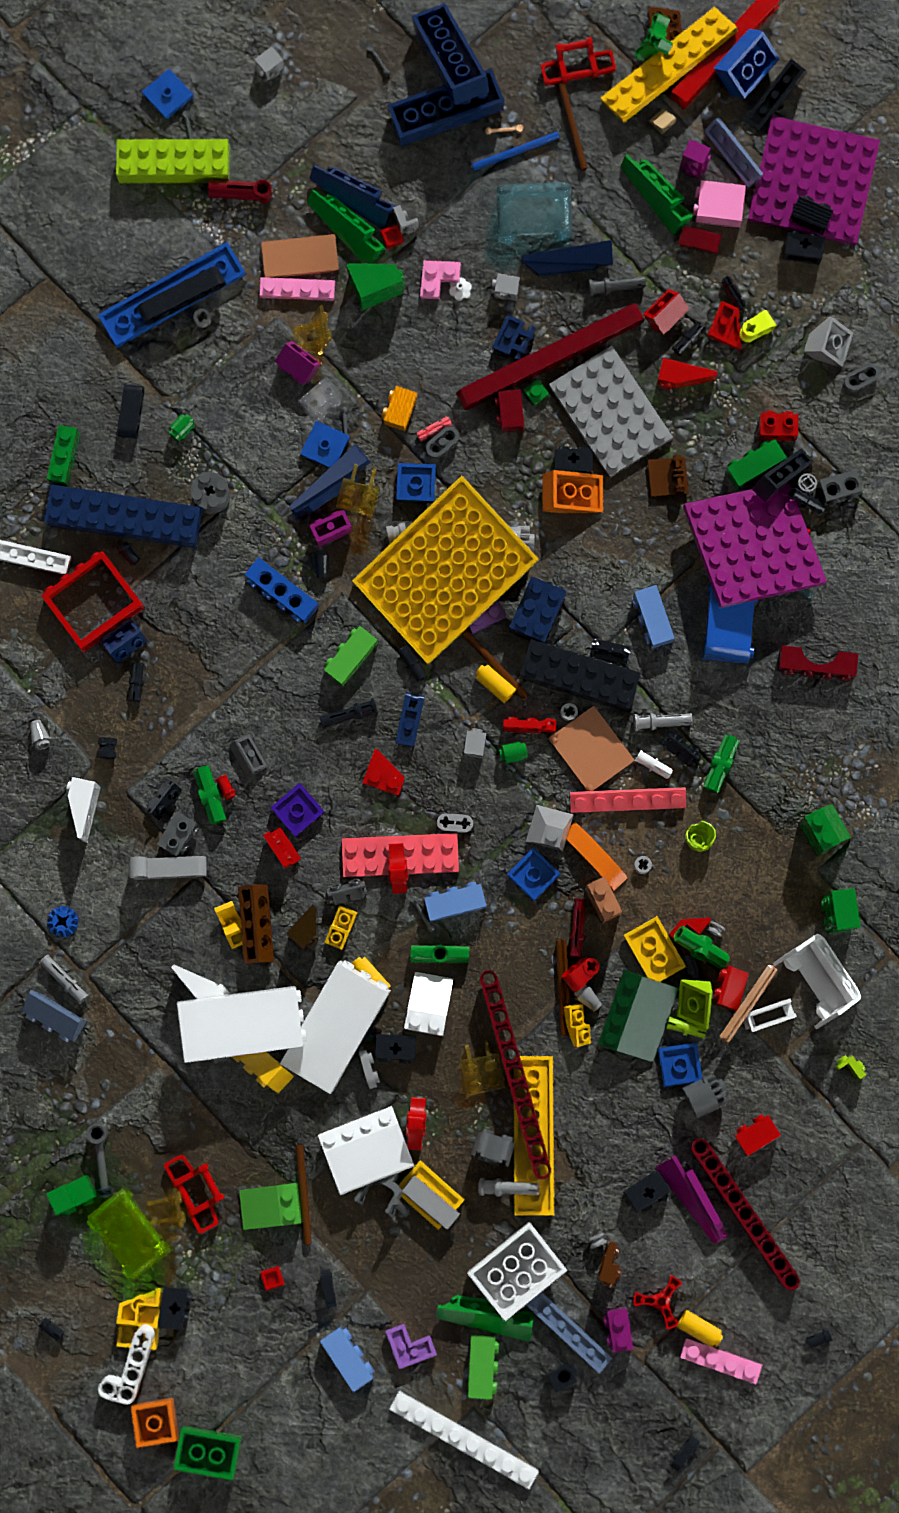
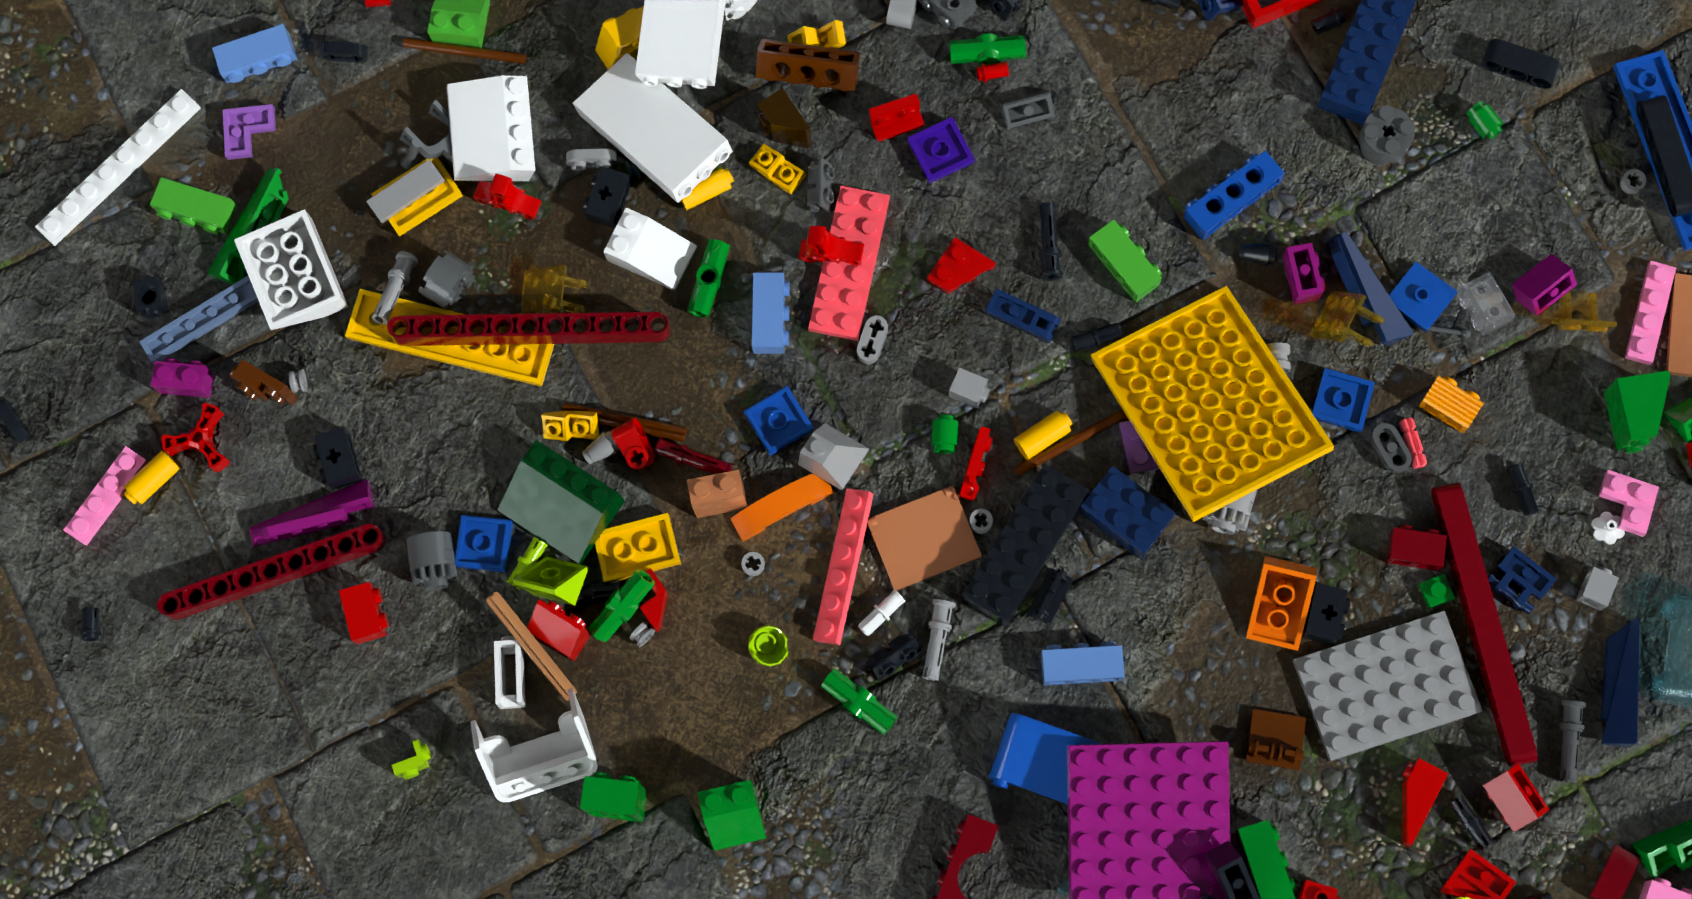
camera: 110 degrees right, 5 degrees down
(449, 349) = (1523, 489): none -> black axle

